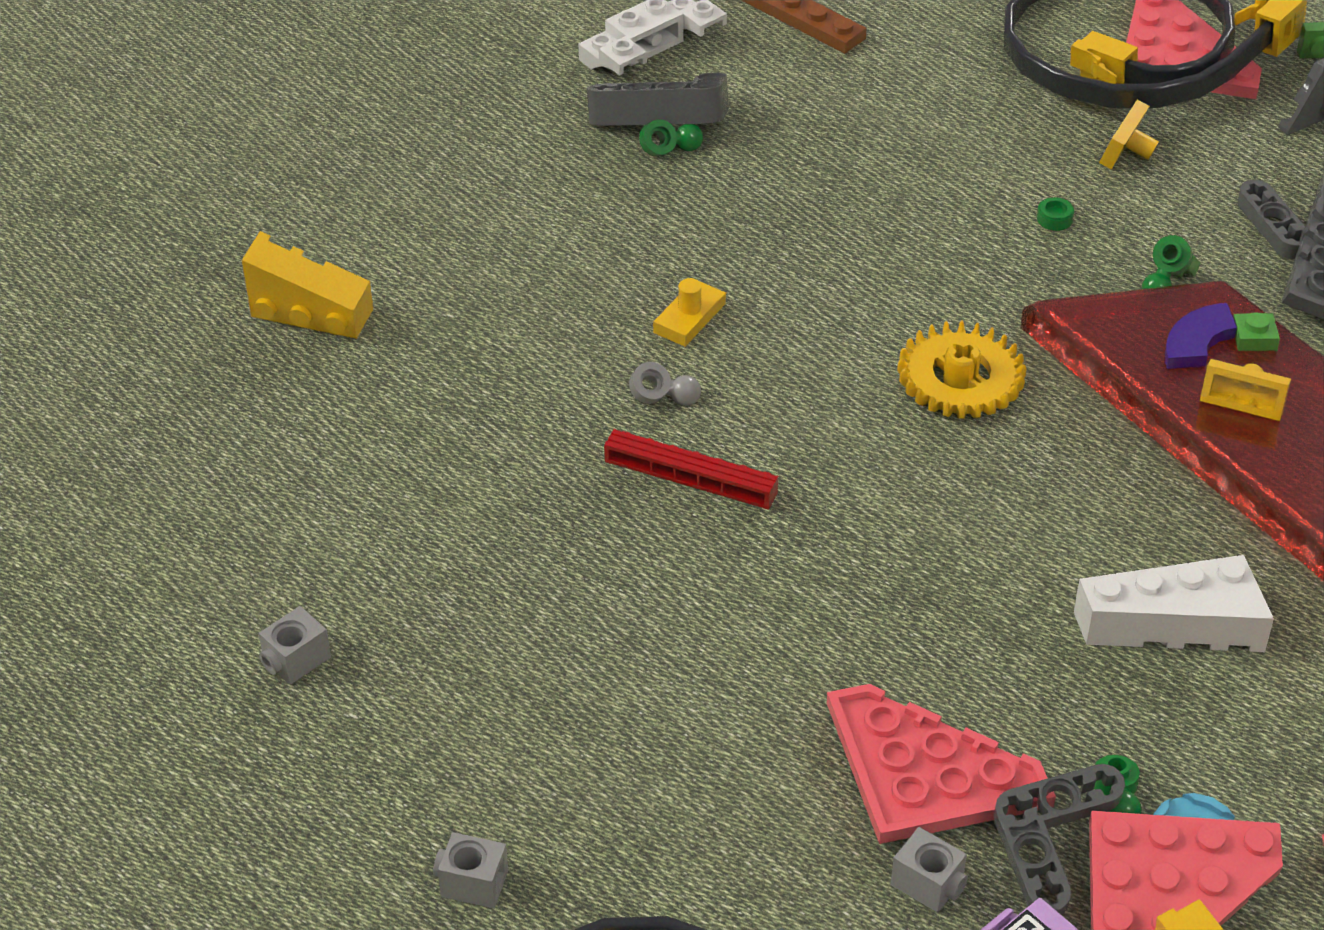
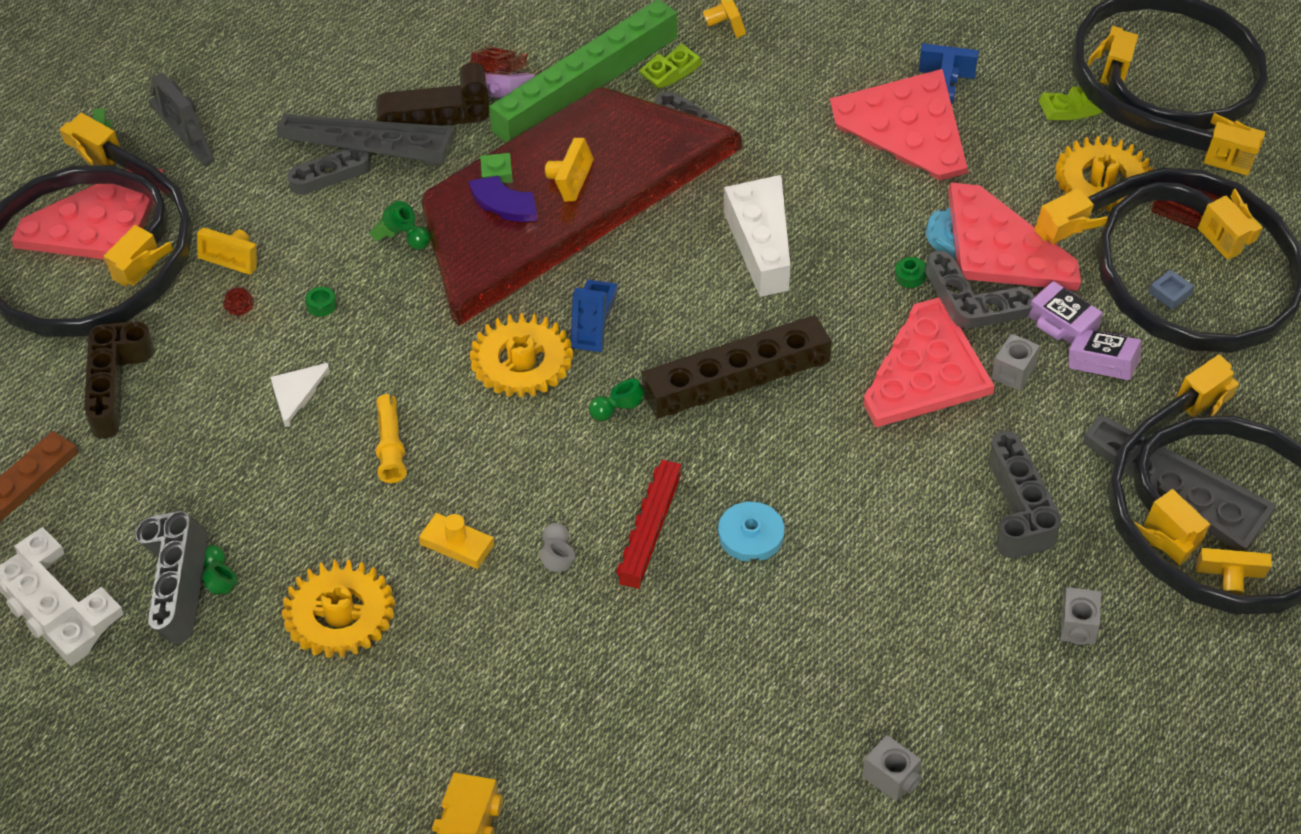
camera: 95 degrees left, 5 degrees up
(608, 210) = (331, 597): none -> yellow gear
(668, 560) = (751, 543): none -> medium azure plate
(745, 832) = (1035, 517): none -> dark grey beam
(823, 259) = (390, 448): none -> yellow pin
(886, 455) = (624, 395): none -> green plate
(915, 193) = (296, 389): none -> white tile
(932, 566) = (736, 366): none -> dark brown brick
(936, 57) = (108, 350): none -> dark brown beam
(1027, 425) = (589, 314): none -> blue bracket
(1050, 148) = (238, 301): none -> clear red plate

